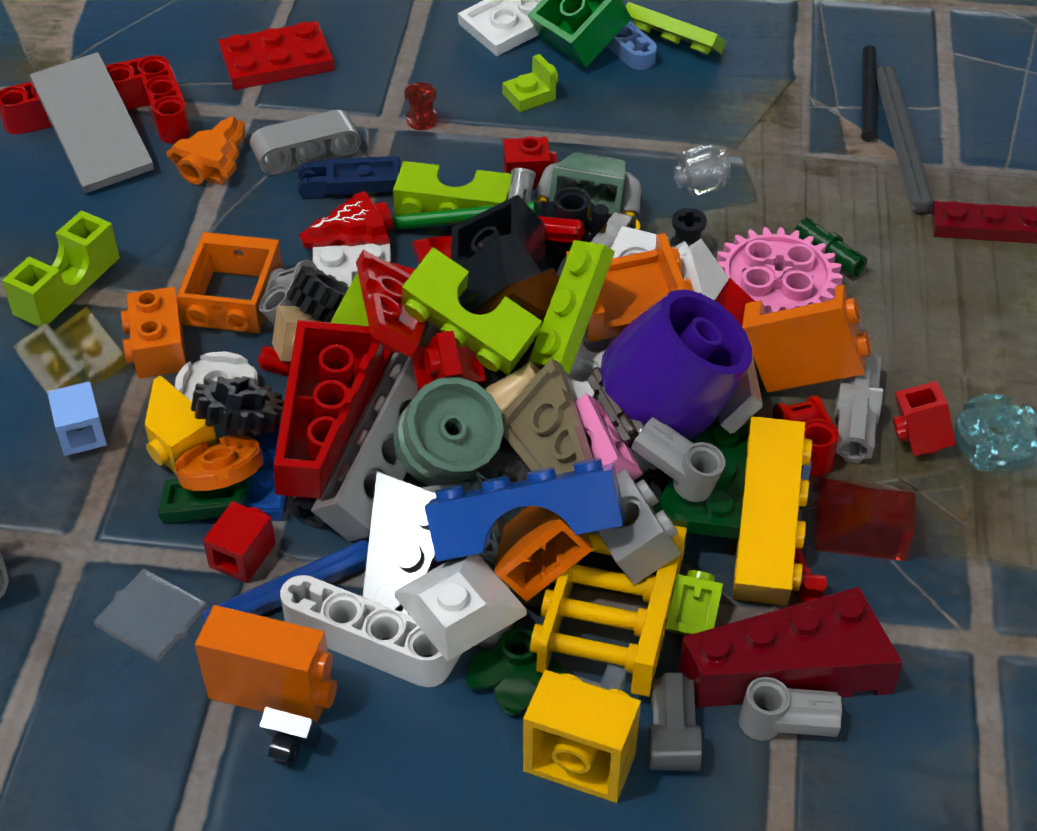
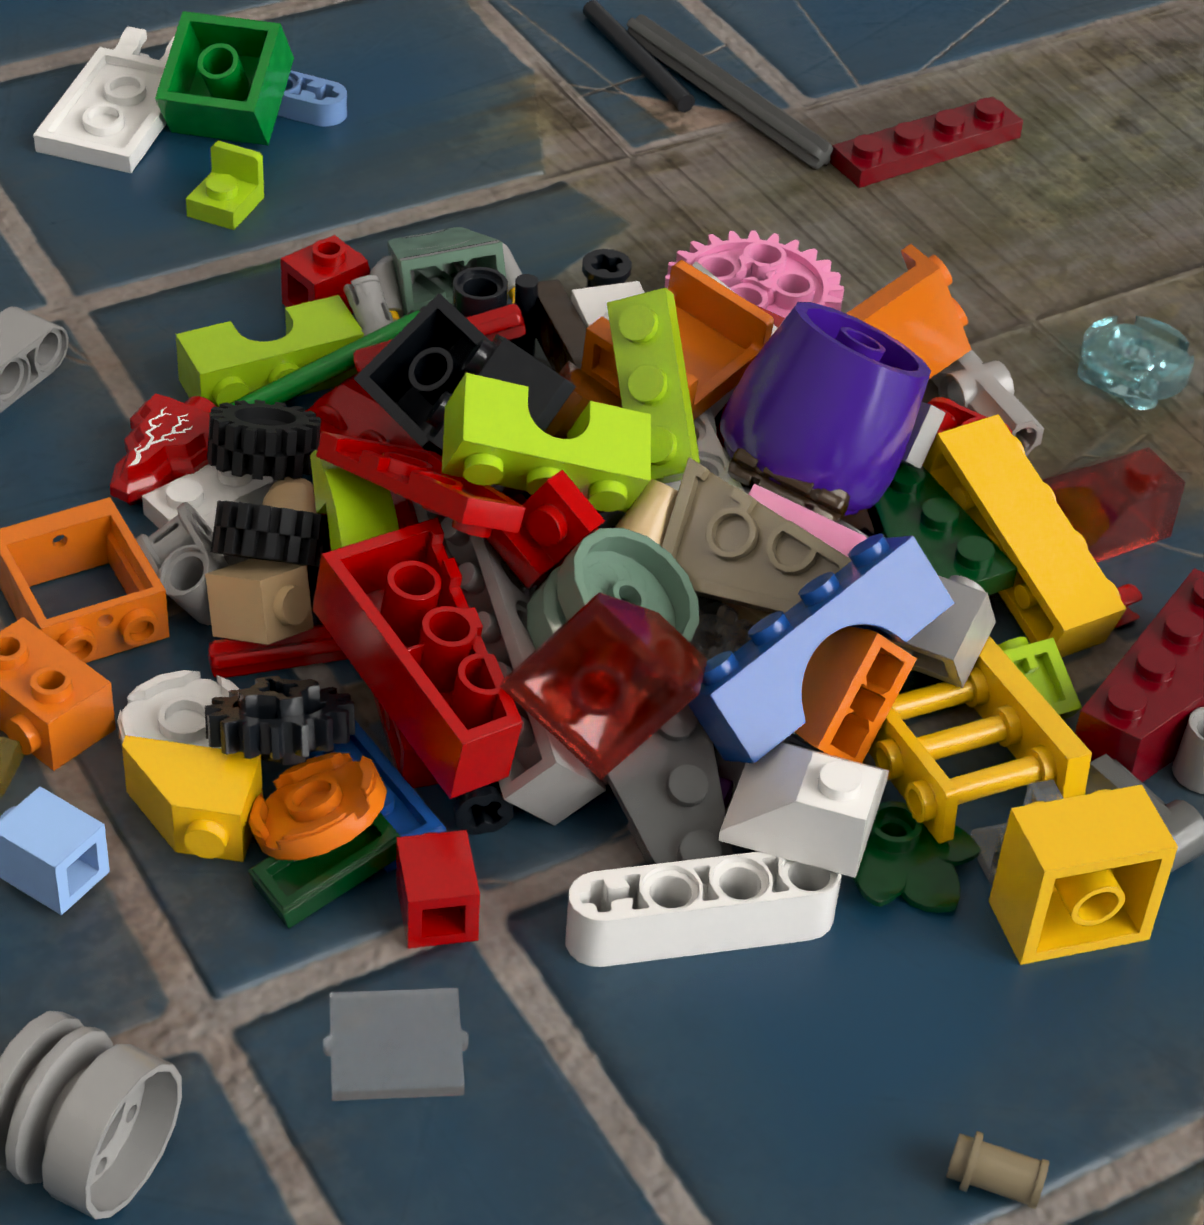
camera: 40 degrees left, 5 degrees down
(265, 663) = (650, 1000): orange brick -> none
(288, 734) = (740, 1069): black tile -> none
(328, 569) = (543, 917): blue axle -> none
(348, 176) = (98, 389): dark blue hinge -> none
(384, 466) = (608, 680): none -> clear red slope
(386, 238) = (262, 439): none -> black tyre
(421, 106) = (109, 264): clear red bush -> none
(675, 30) = (346, 58): lime plate -> none
(692, 466) = (934, 514): light grey piece -> none
(702, 170) = (550, 206): clear head -> none
(850, 260) = (807, 238): dark green pin -> none
(923, 419) = (1068, 371): red brick -> none

